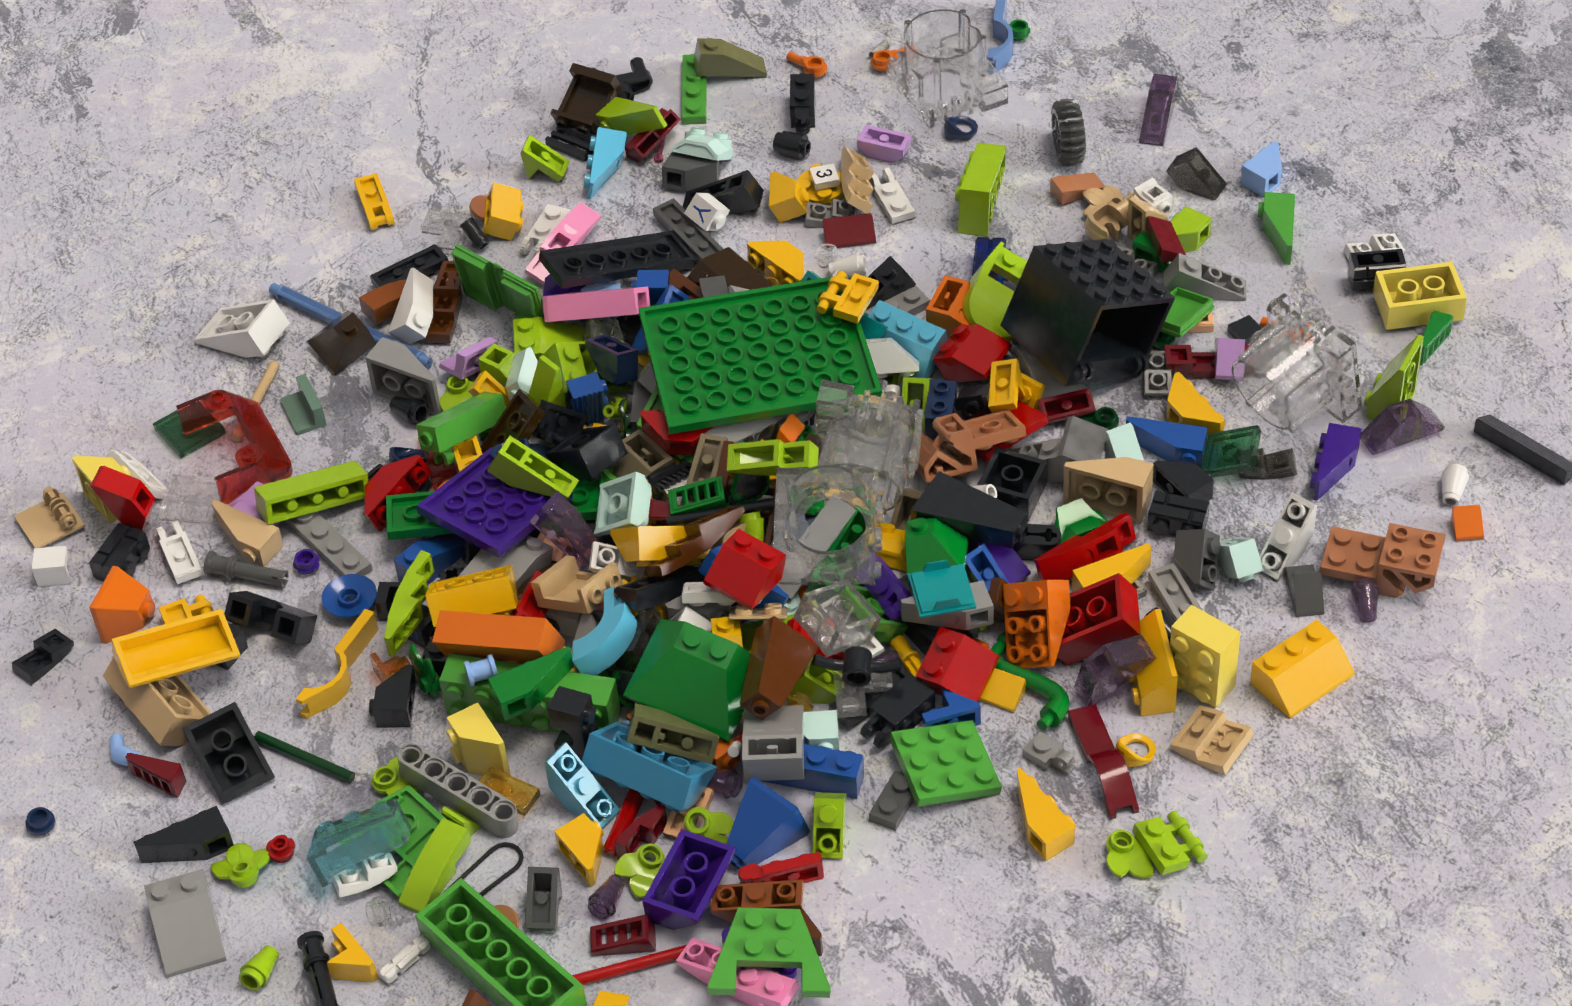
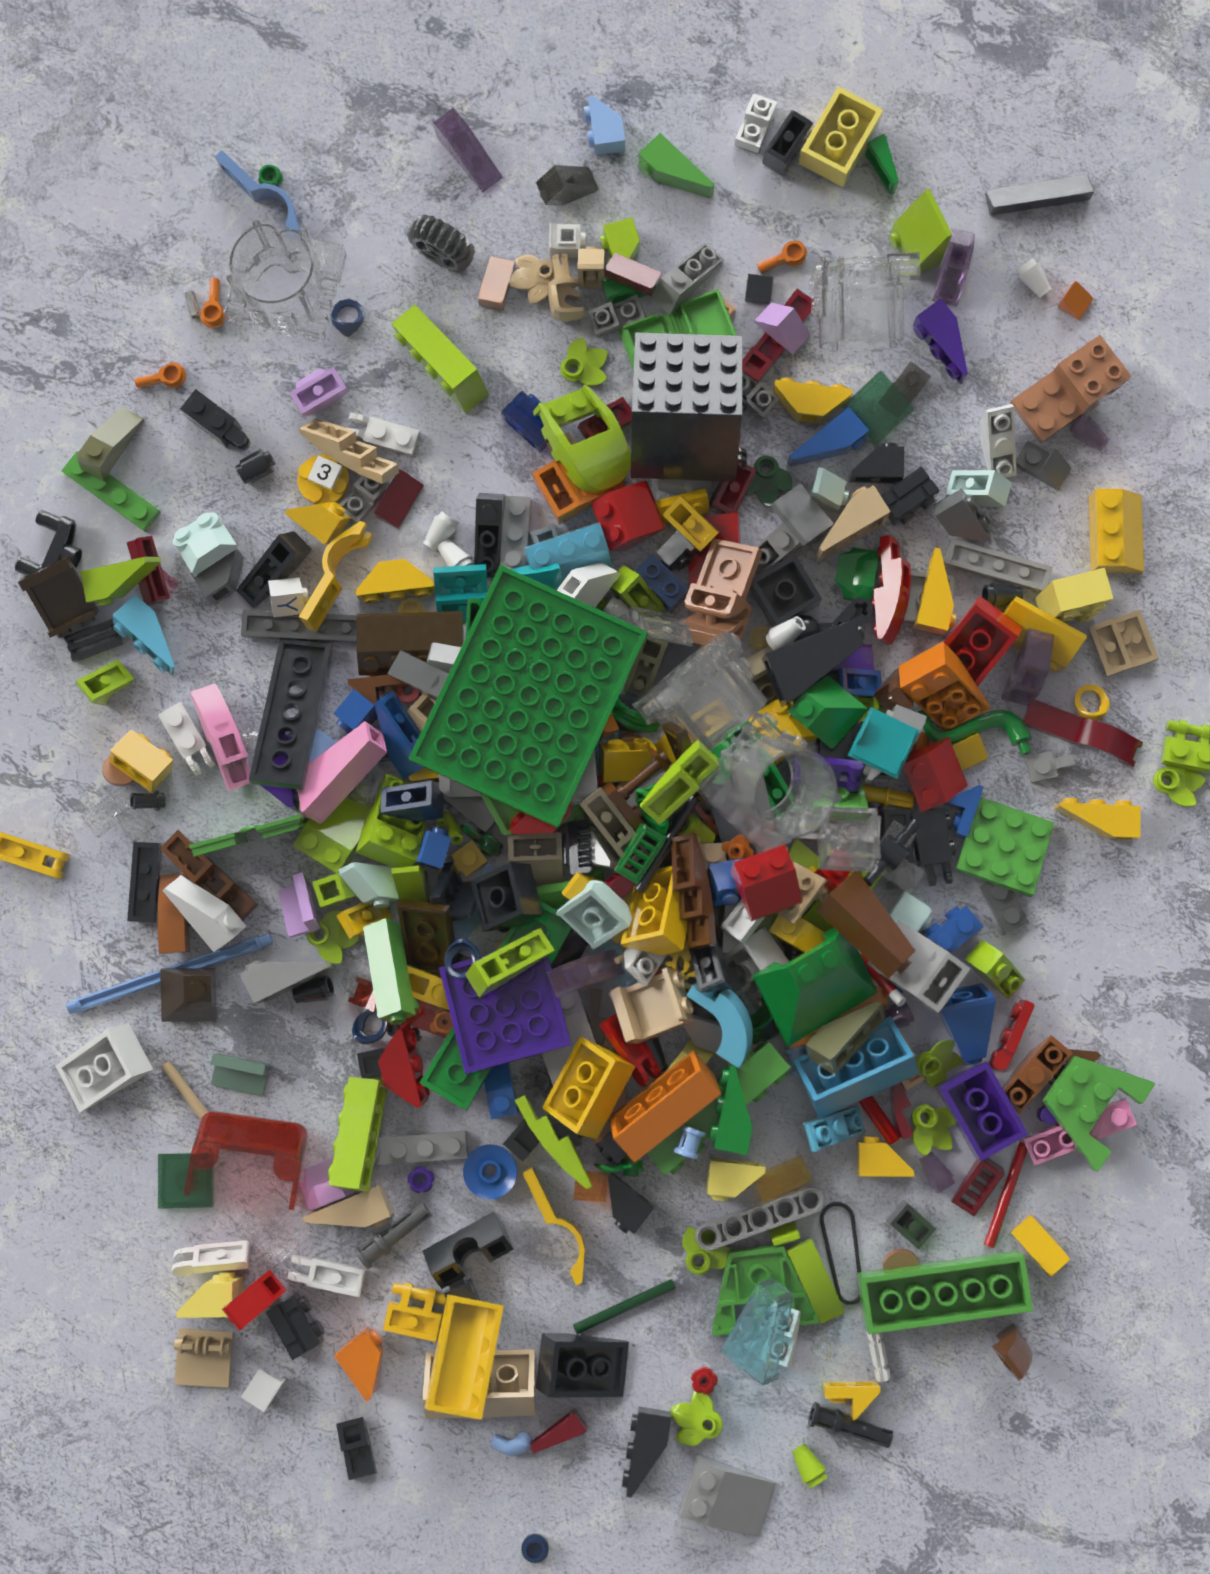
camera: 50 degrees left, 35 degrees up
(575, 716) = (785, 1100): black arch -> none
(741, 226) = (329, 587): none -> yellow piece
(853, 301) = (541, 580): yellow plate -> none

